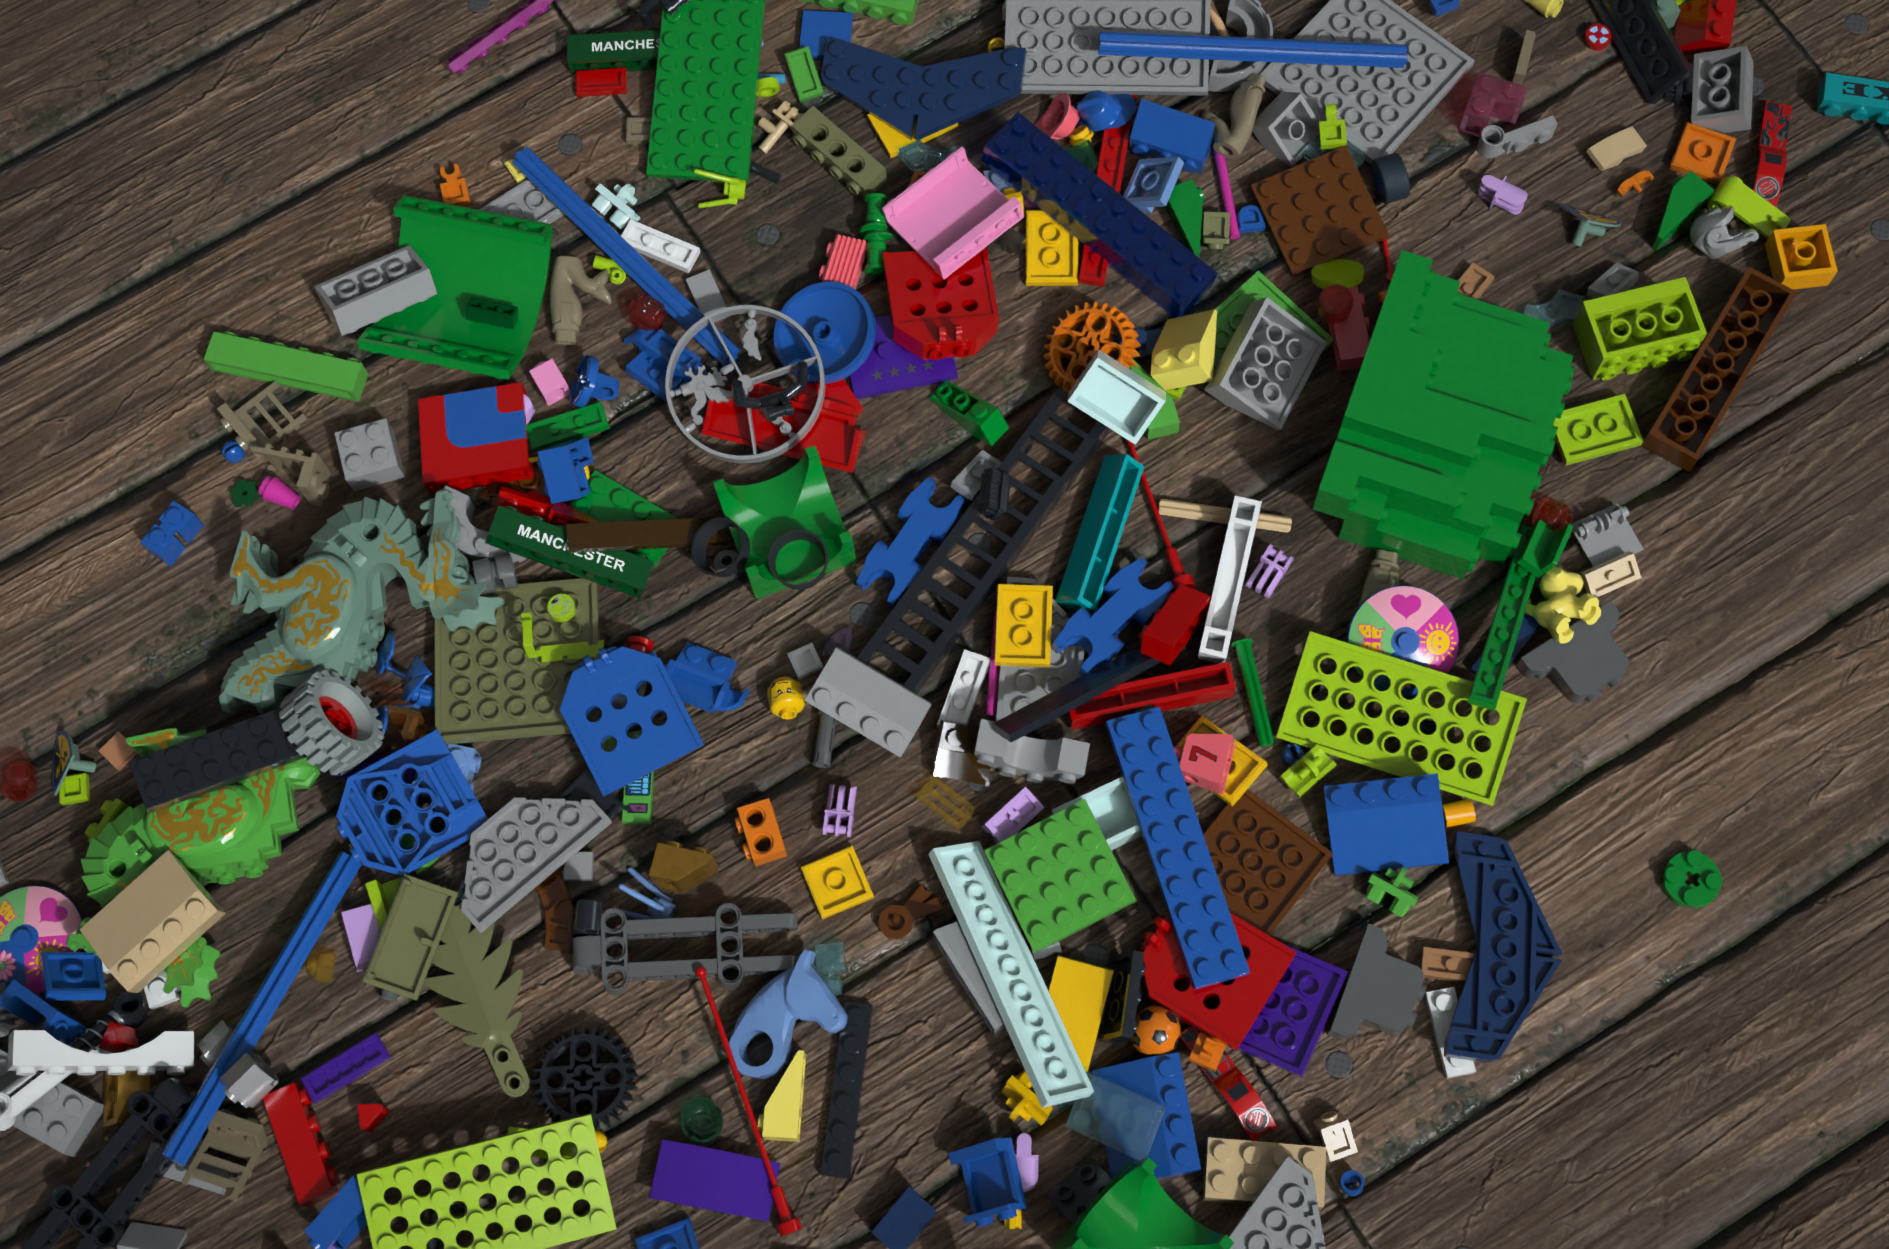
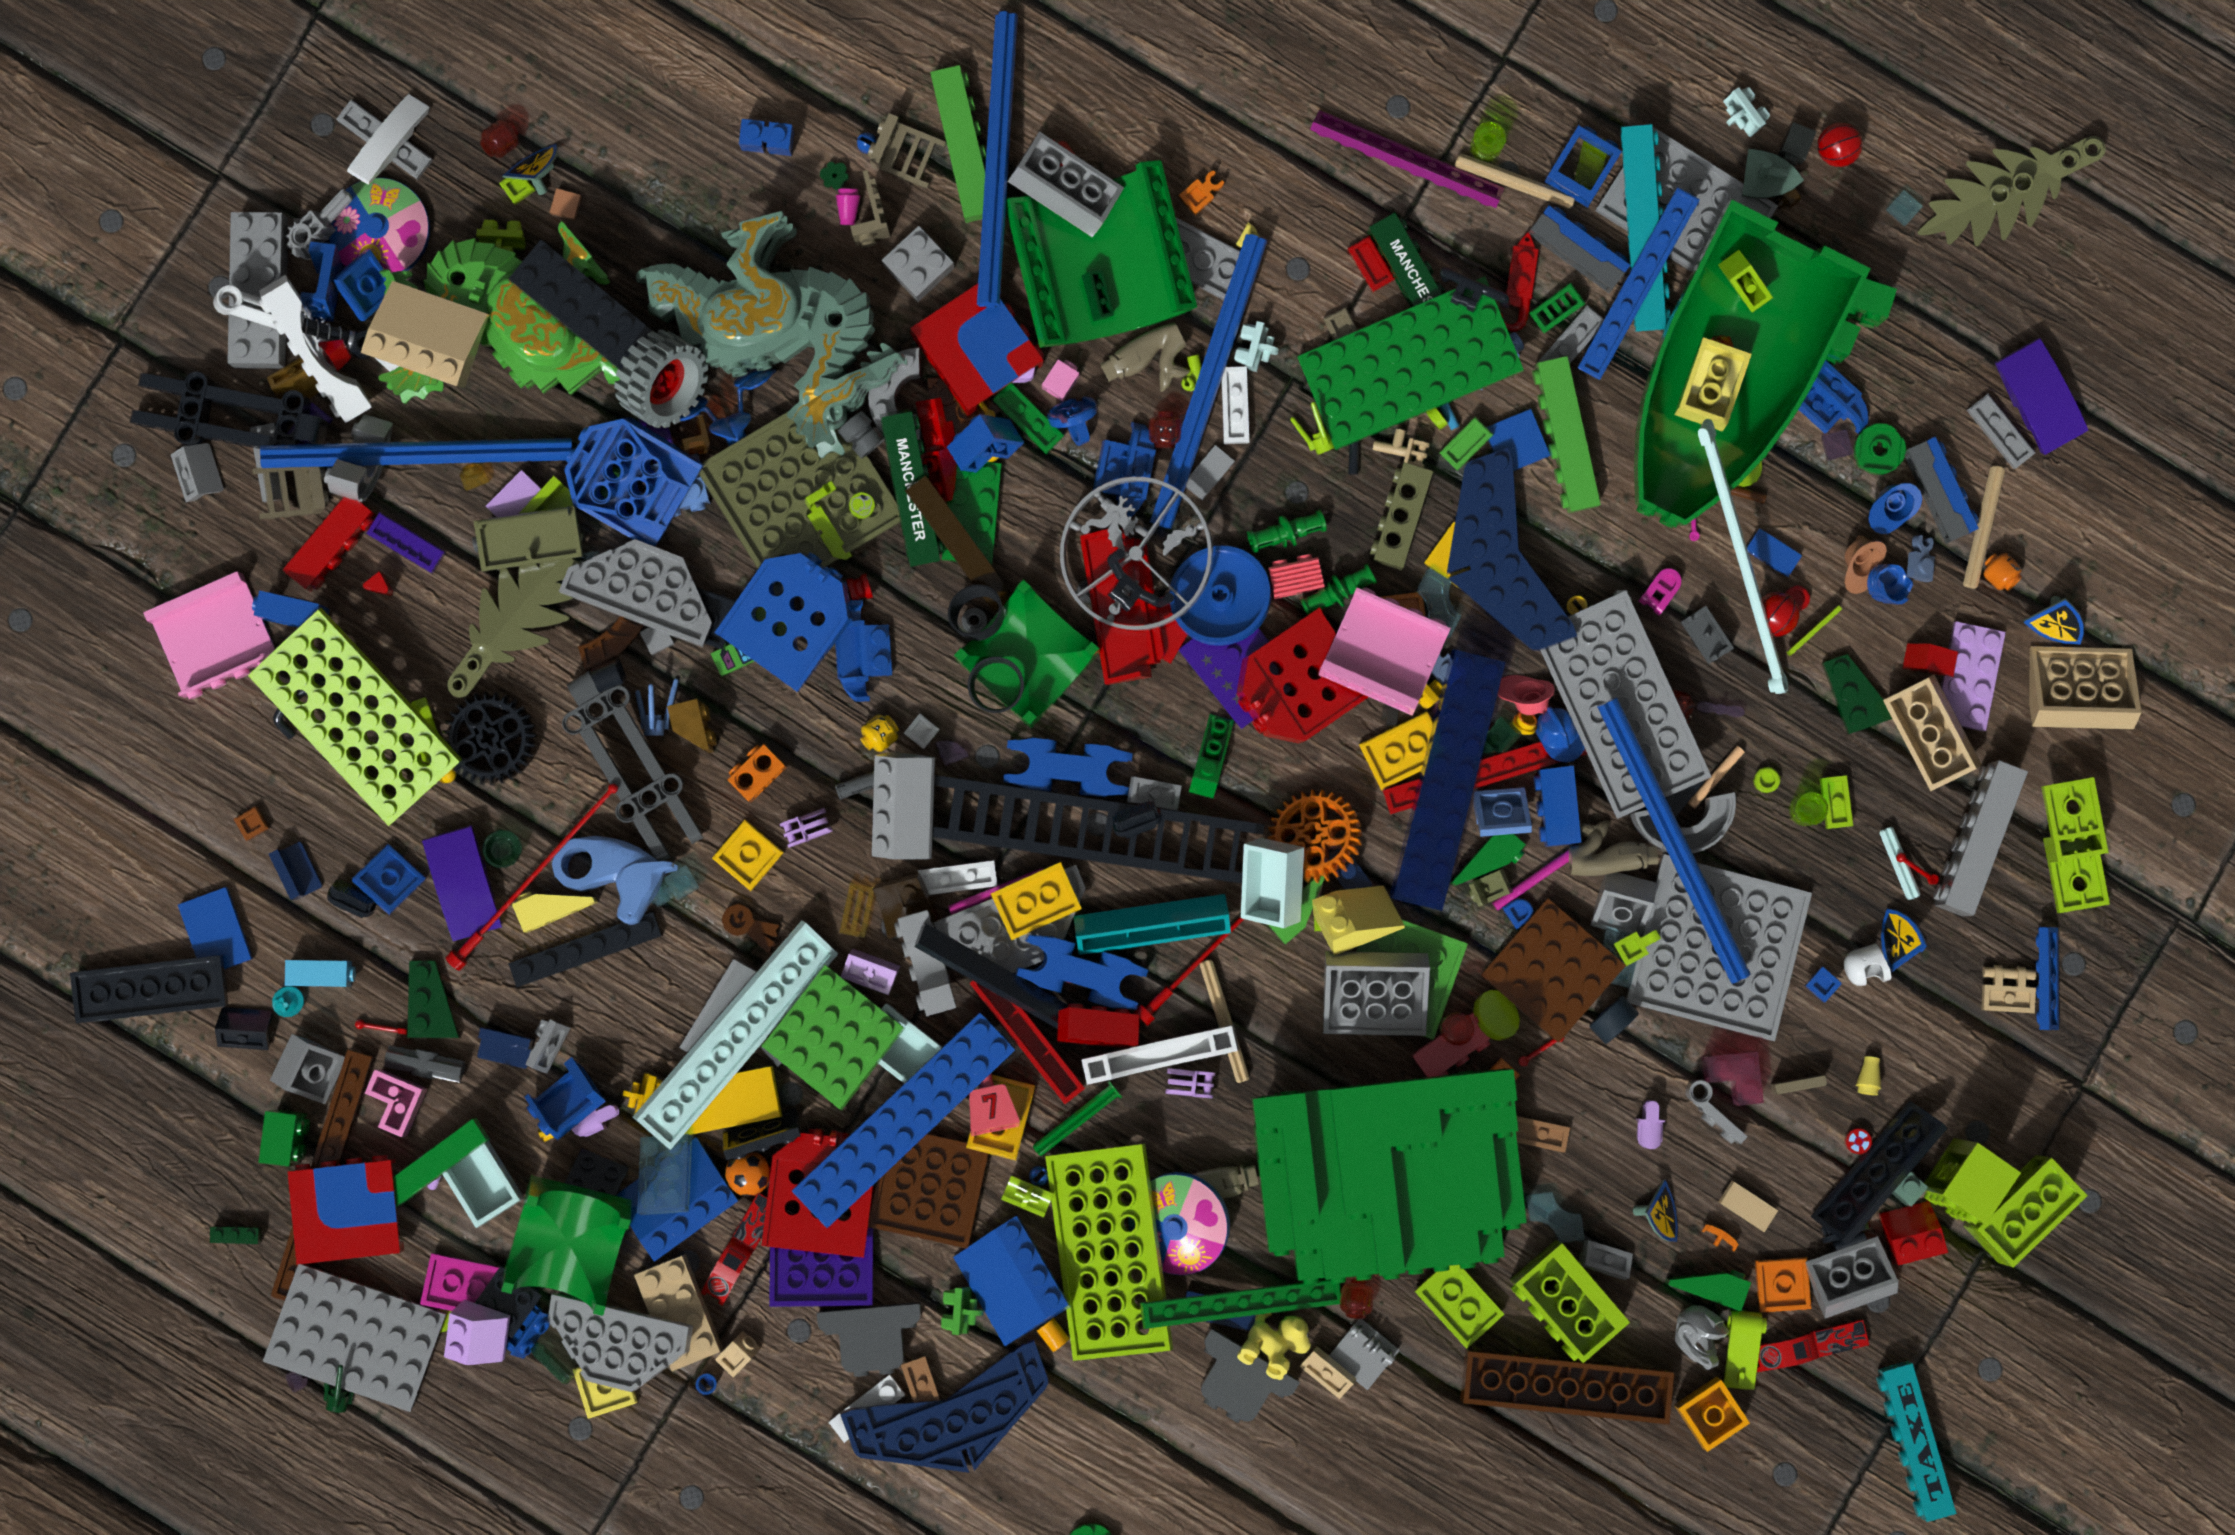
camera: 55 degrees right, 15 degrees up
(319, 338) = (997, 160): none -> blue axle
(797, 252) = (1286, 531): none -> green piece
(918, 1166) = (551, 1039): none -> light grey hinge
(1207, 1052) = (752, 1222): orange tile -> none
(1543, 548) = (1319, 1306): green panel -> none

